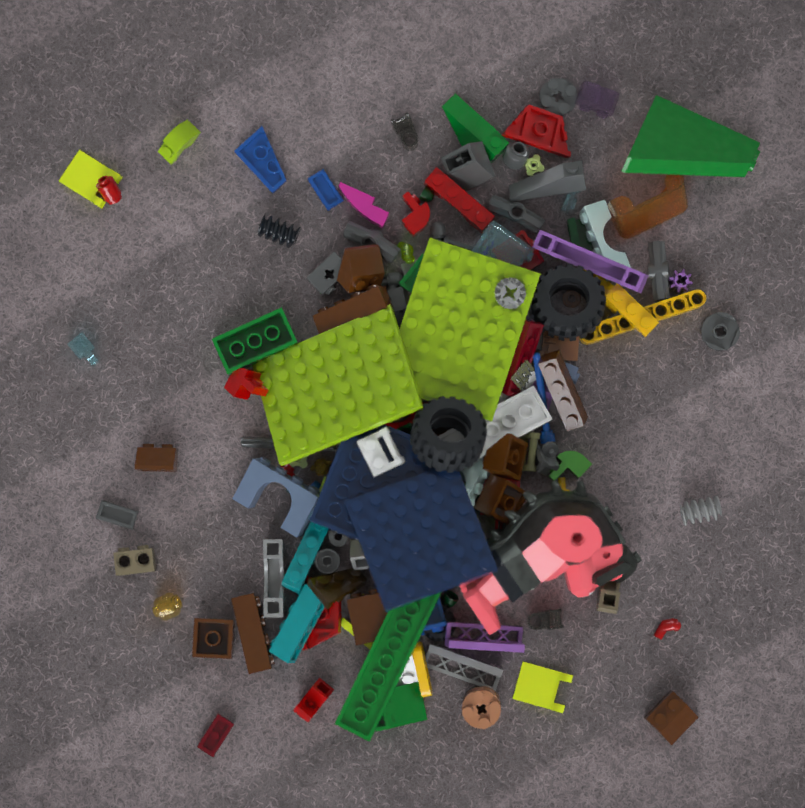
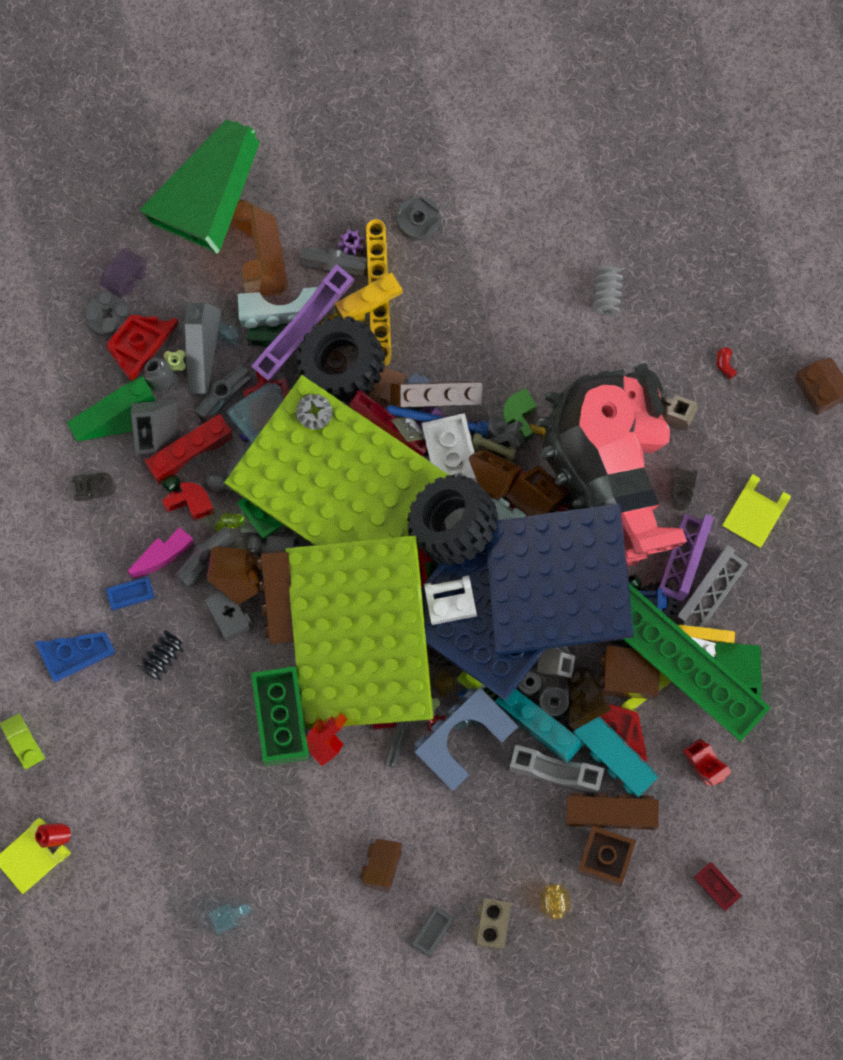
camera: 75 degrees left, 10 degrees down
(481, 718) = (774, 584): nougat brick -> none

